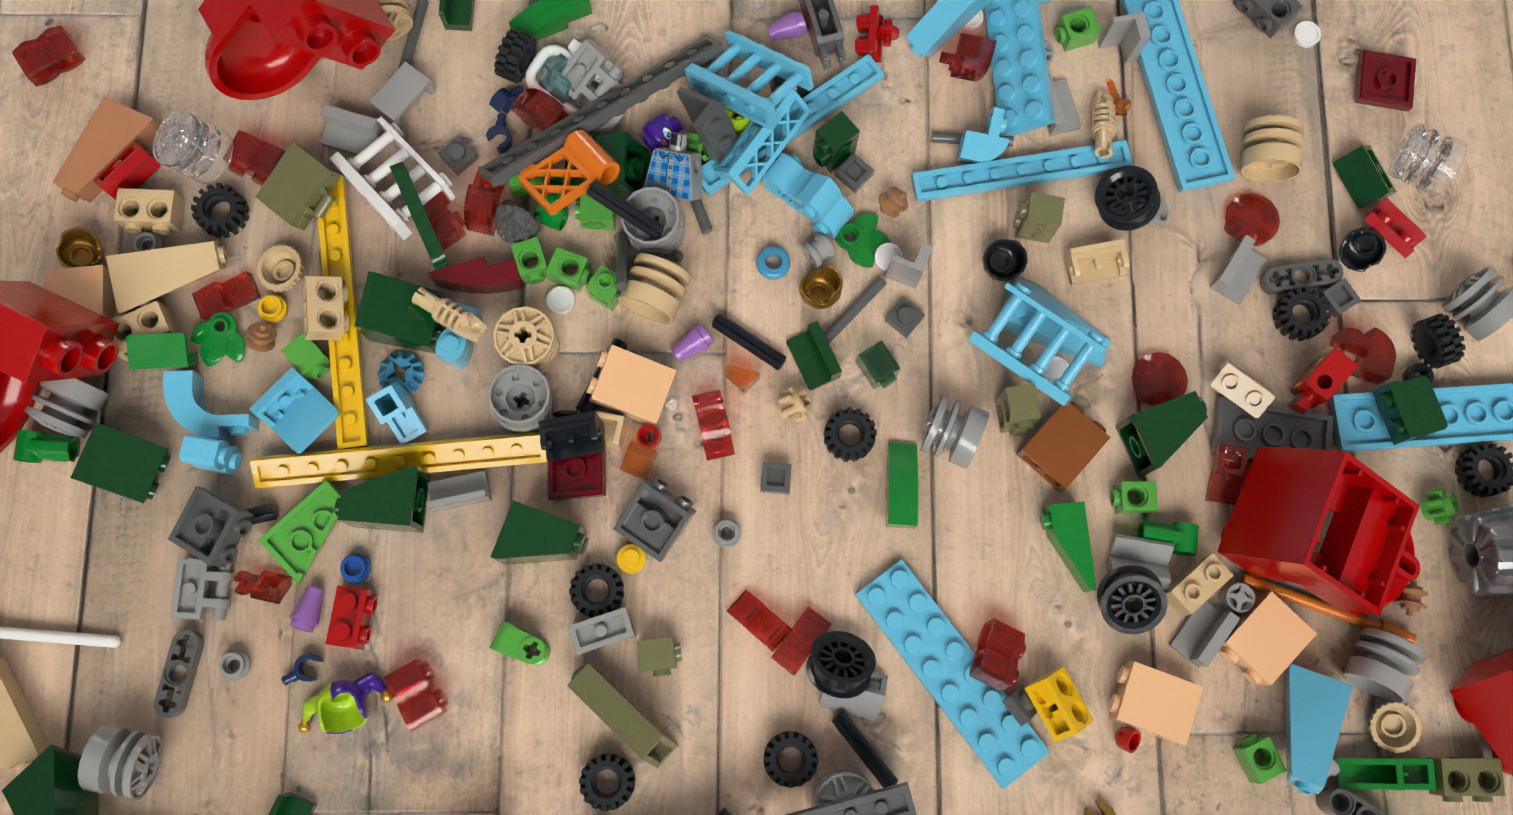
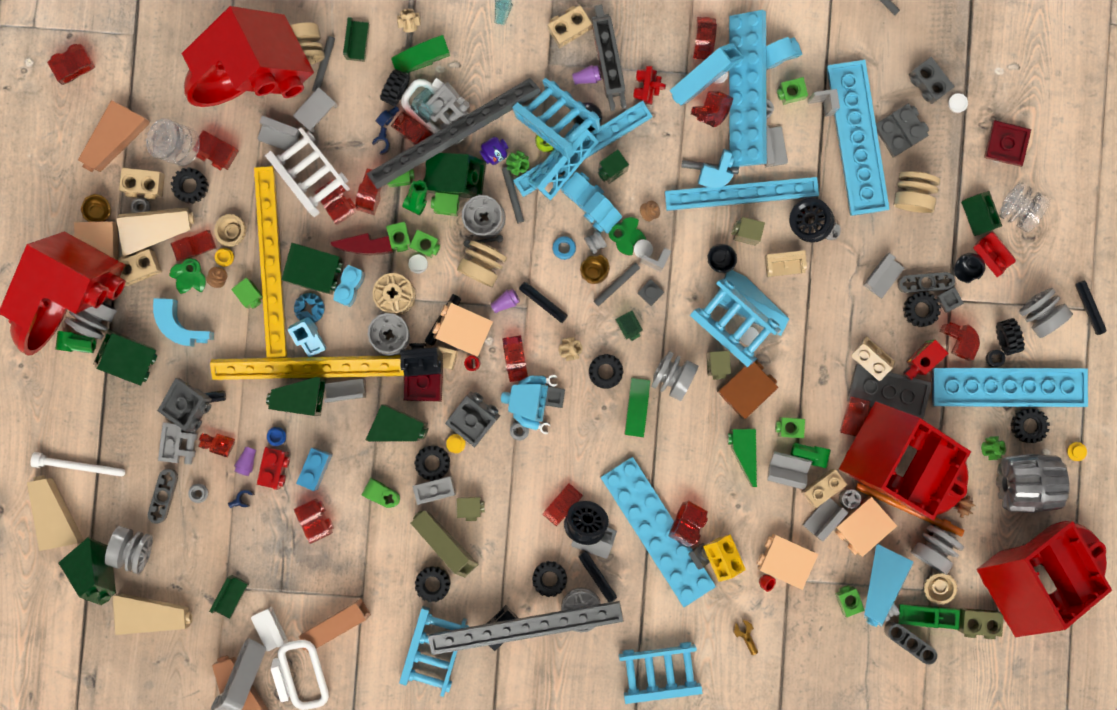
camera: 10 degrees right, 10 degrees up
(127, 170) = (126, 154): red panel -> none
(159, 351) = (150, 284): green panel -> none
(210, 454) = (184, 357): medium azure brick -> none
(295, 410) = (240, 330): medium azure bracket -> none
(299, 187) = (244, 175): olive piece -> none
(303, 531) = (243, 410): bright green wing -> none
(317, 307) = (254, 262): tan brick -> none
(343, 704) = (267, 523): piece -> none
(414, 613) = (314, 469): none -> dark azure brick
(419, 215) = (325, 204): dark green beam -> none
(451, 315) = (345, 276): tan hinge -> none
(458, 155) = (352, 155): dark grey plate -> none
(515, 222) = (390, 211): dark grey hair -> none
(581, 154) = (439, 170): orange piece -> none
(602, 288) = (449, 259): bright green brick -> none
(621, 261) = (460, 244): dark grey bar -> none
(625, 210) = (464, 211): black axle -> none
(638, 460) = (464, 379): clear orange slope -> none
(676, 169) = (501, 181): torso -> none
(709, 122) = (530, 153): dark grey bracket -> none
(738, 484) = (528, 401): none -> medium azure torso
(741, 377) = (536, 328): clear orange slope -> none
(759, 620) = (536, 489): clear red slope -> none
(814, 357) = (586, 316): dark green panel -> none
(854, 173) = (625, 187): dark grey plate -> none
(1103, 124) = (802, 163): tan hinge -> none
(1121, 105) = (816, 150): clear orange hand -> none
(1139, 614) = (781, 485): black wheel -> none
(1158, 378) = (818, 348): clear red dish -> none
(1160, 431) = (813, 385): dark green slope -> none
(1236, 72) = (902, 130): none -> dark grey plate
(1252, 216) = (898, 238): clear red dish -> none
(1410, 409) = (983, 382): dark green bracket -> none

